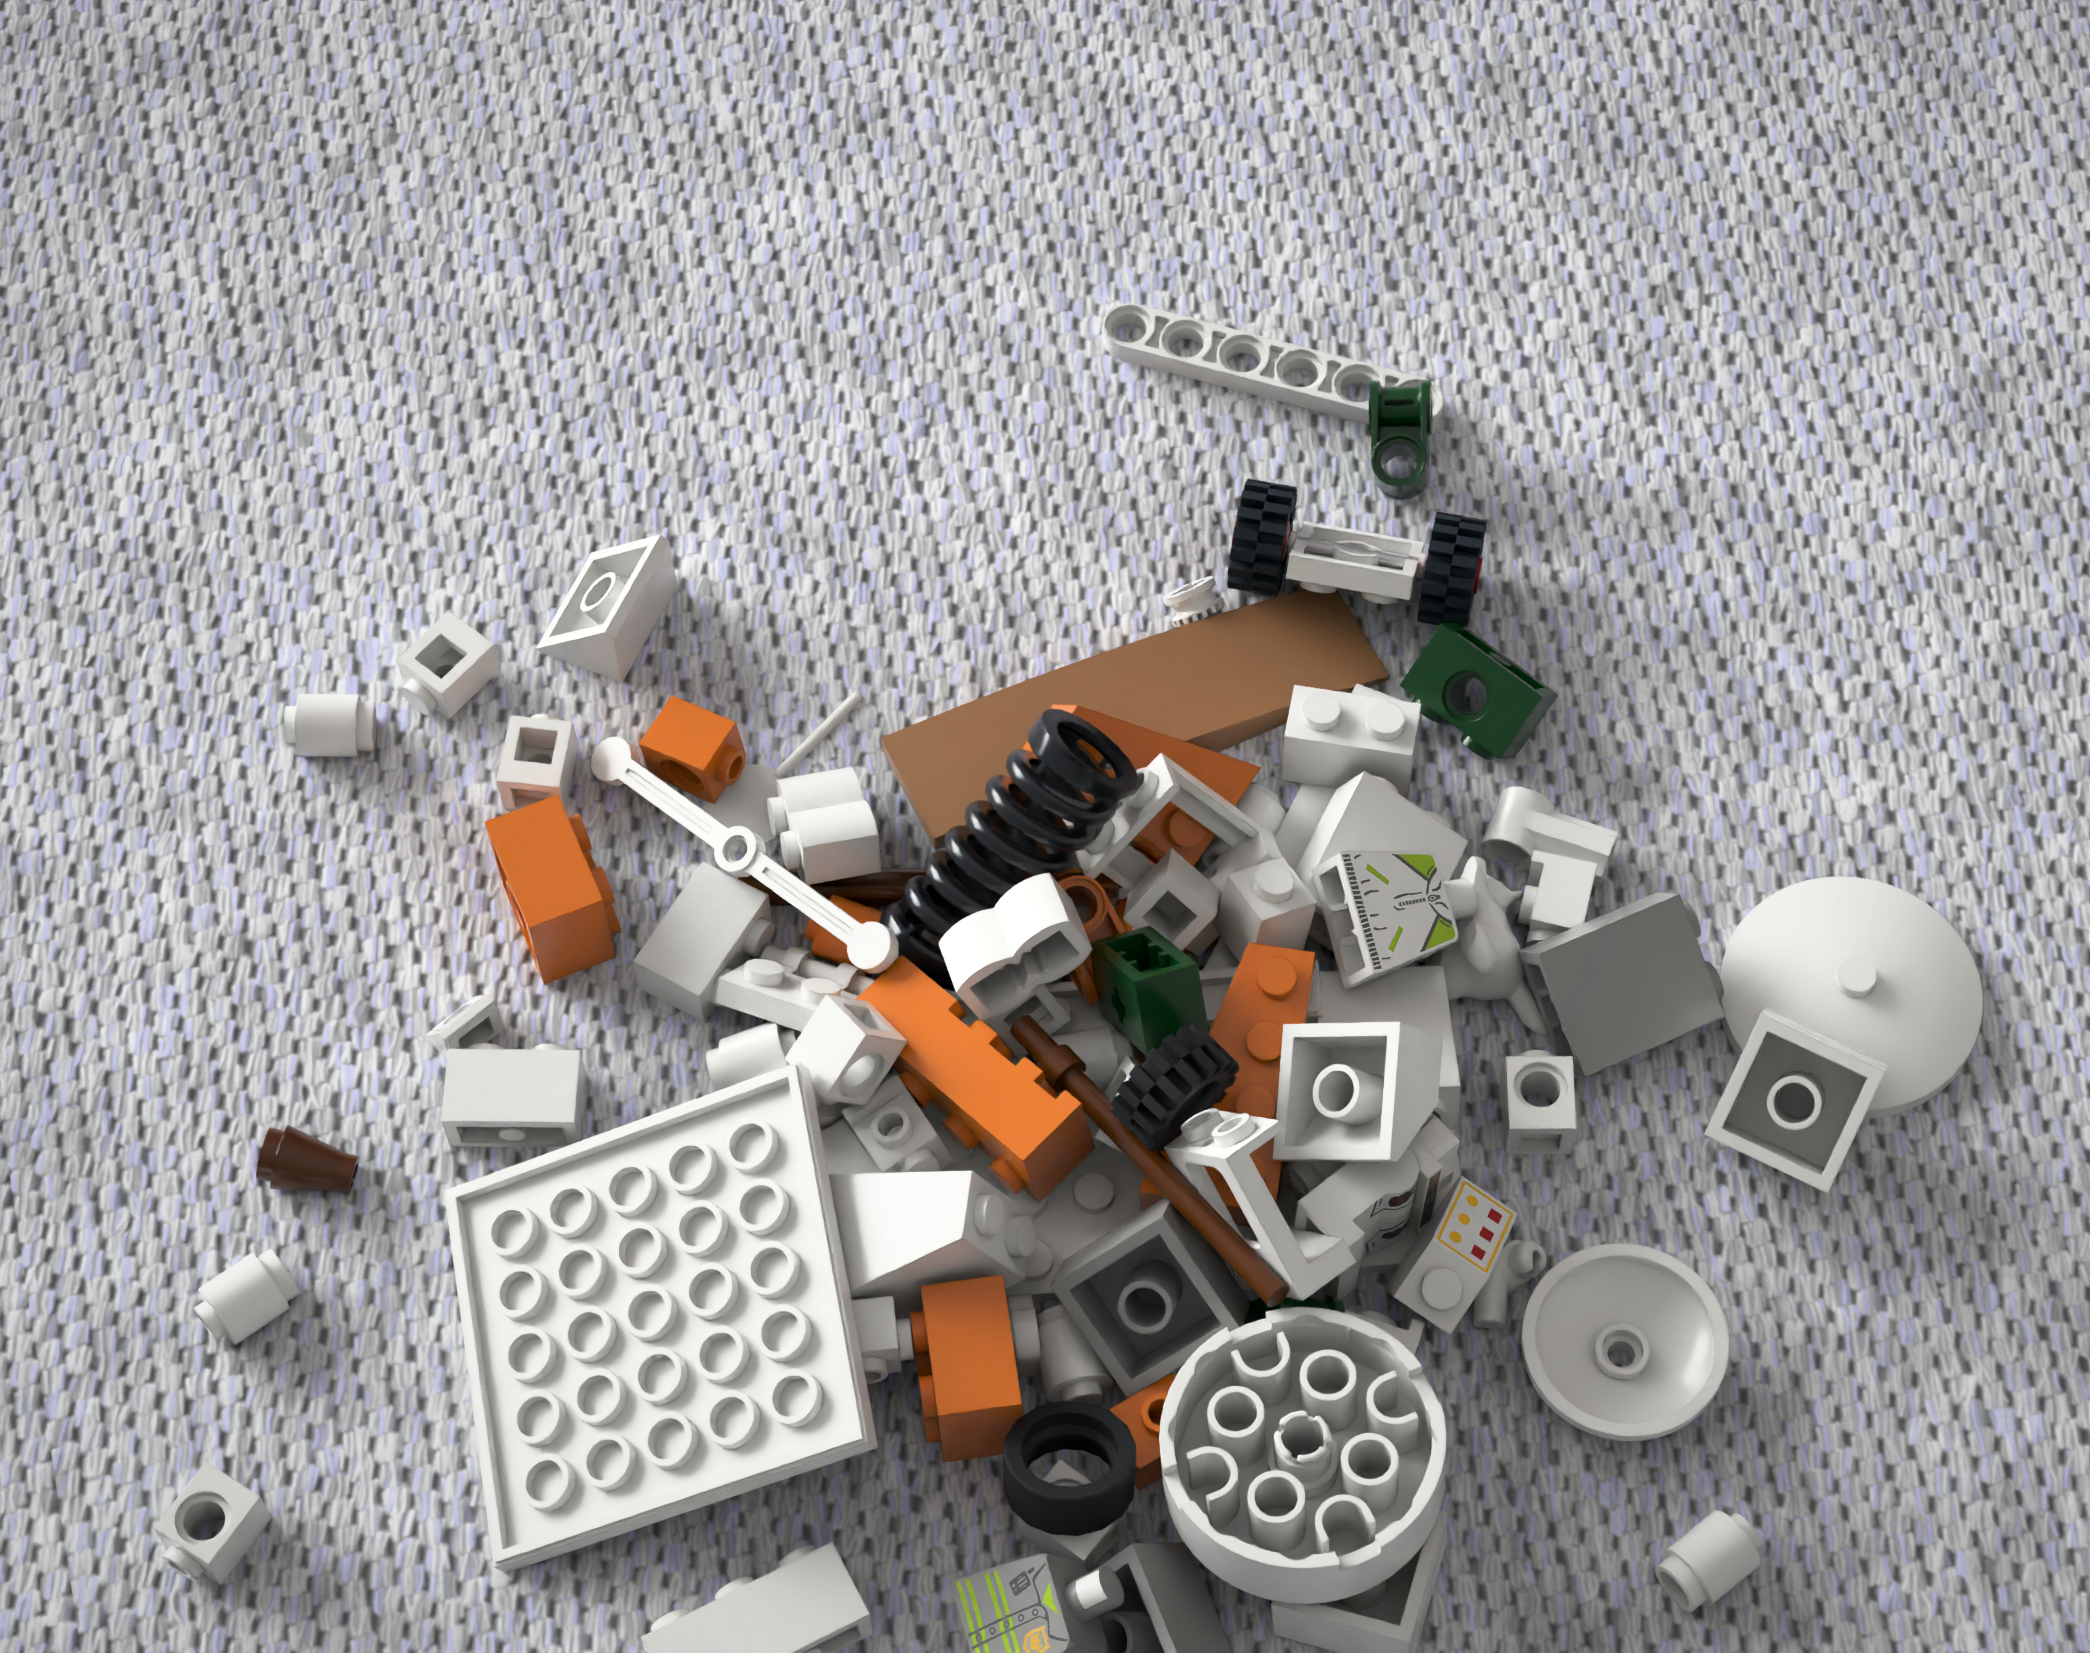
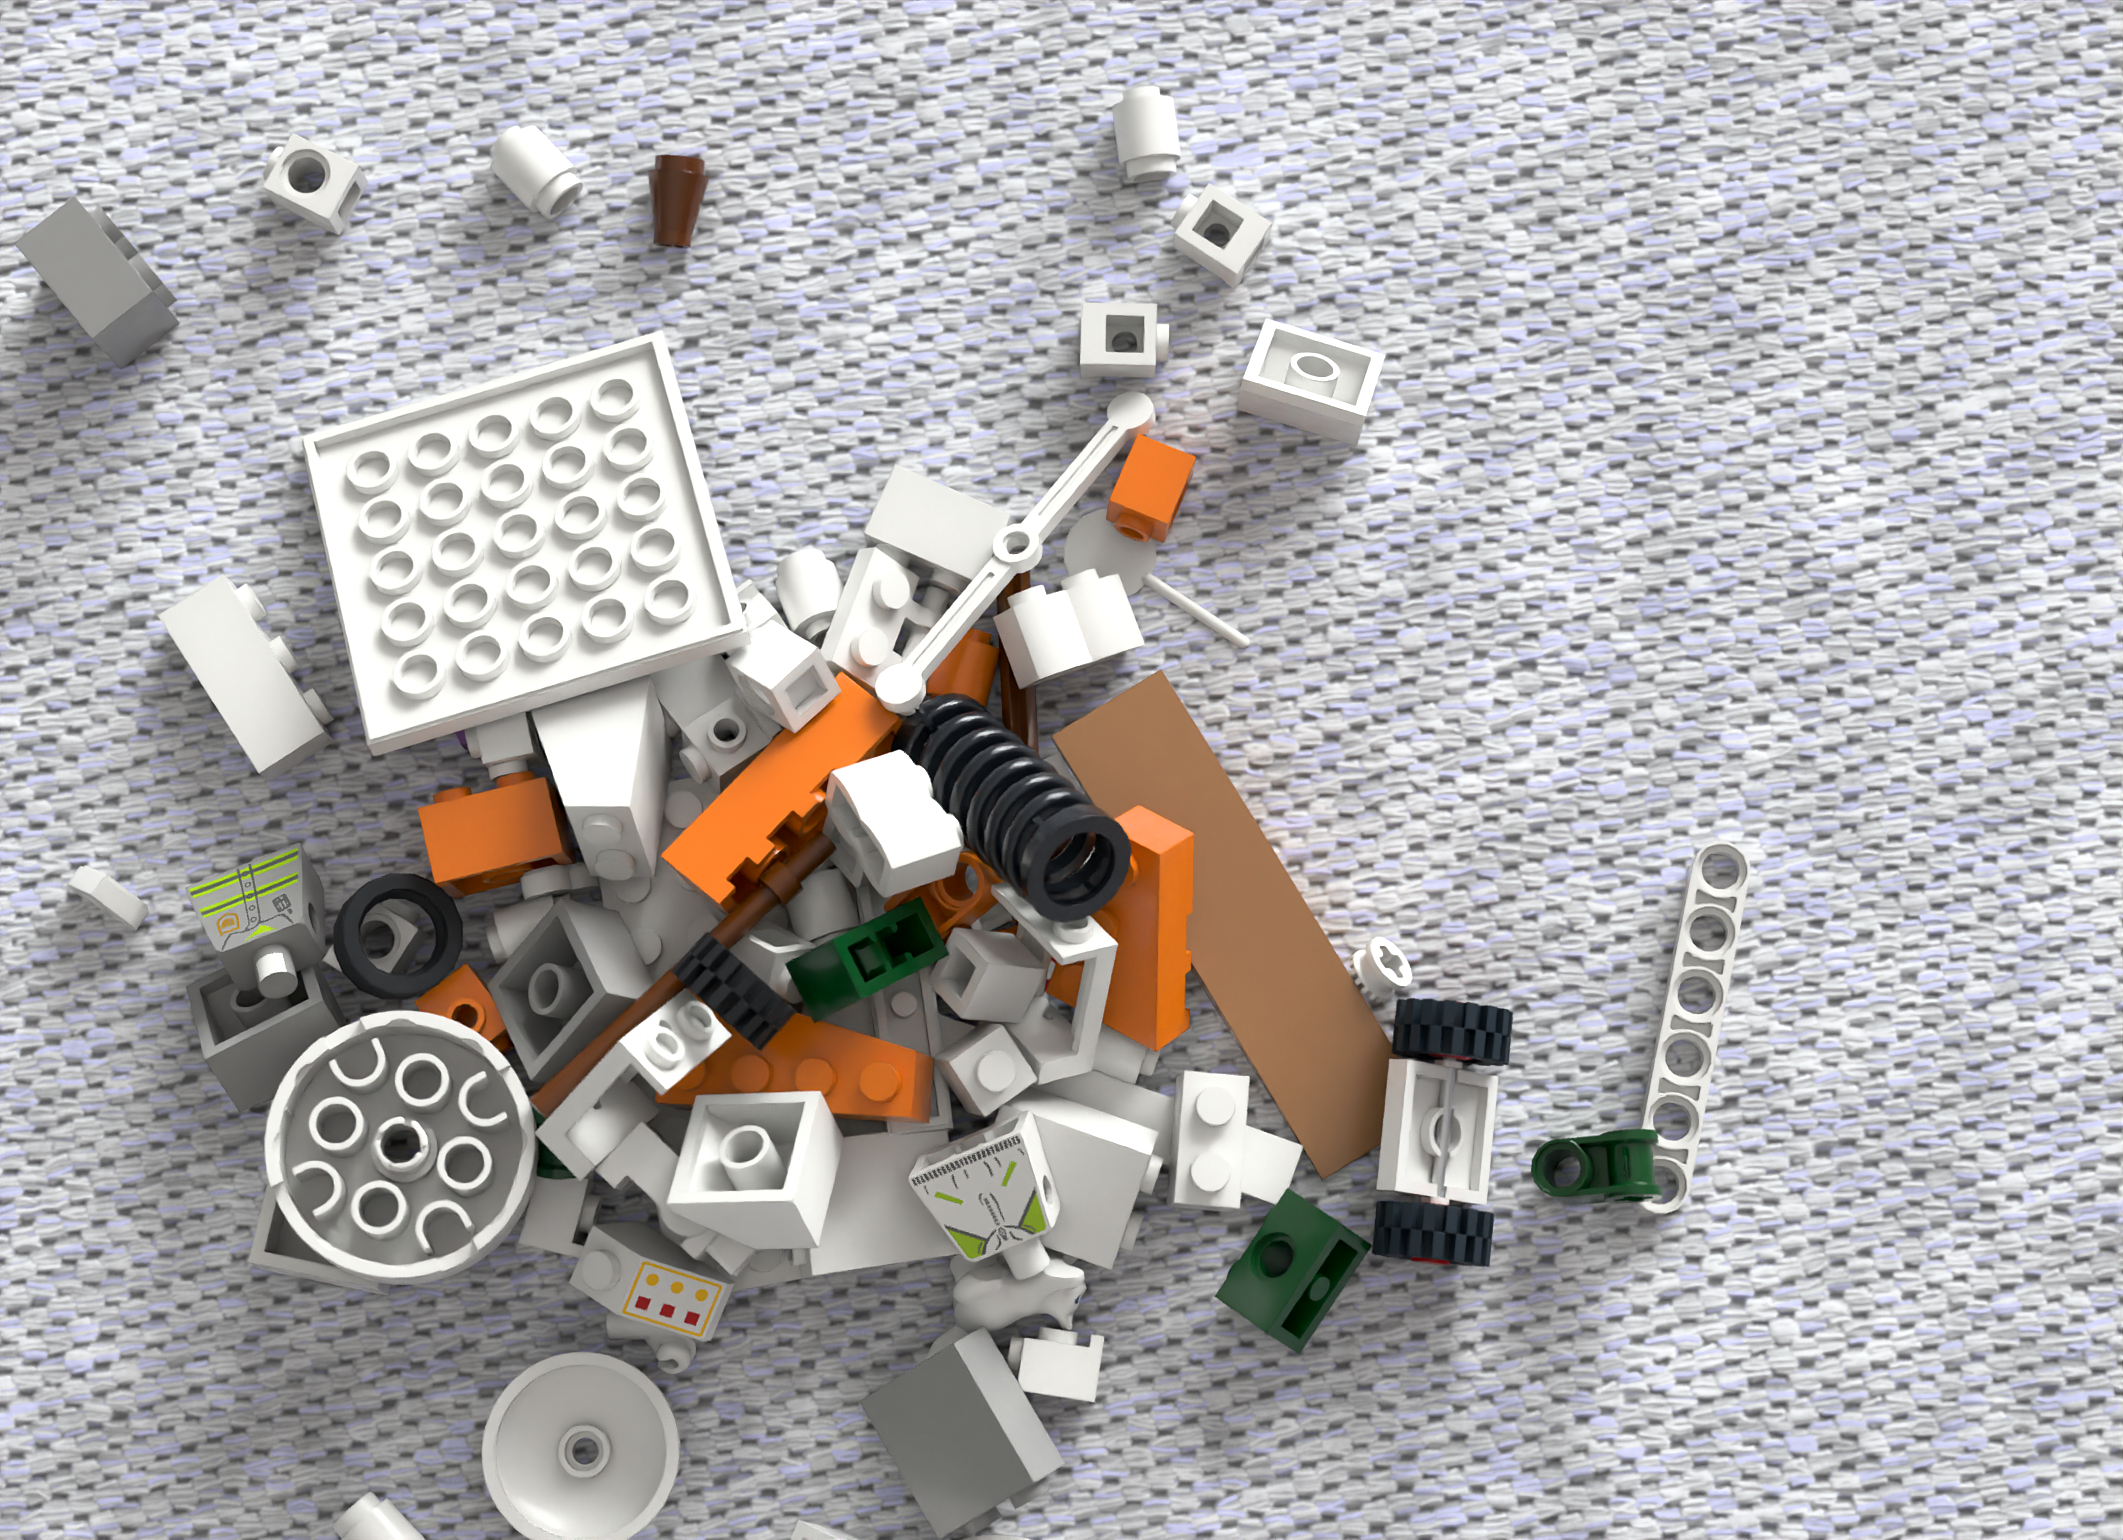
camera: 85 degrees right, 20 degrees up
(470, 1024) = (832, 319): white slope -> none
(514, 1096) = (757, 377): white brick -> none
(554, 888) = (965, 375): orange brick -> none
(1529, 822) = (1141, 1340): white piece -> none
(1535, 1128) = (809, 1352): white brick -> none

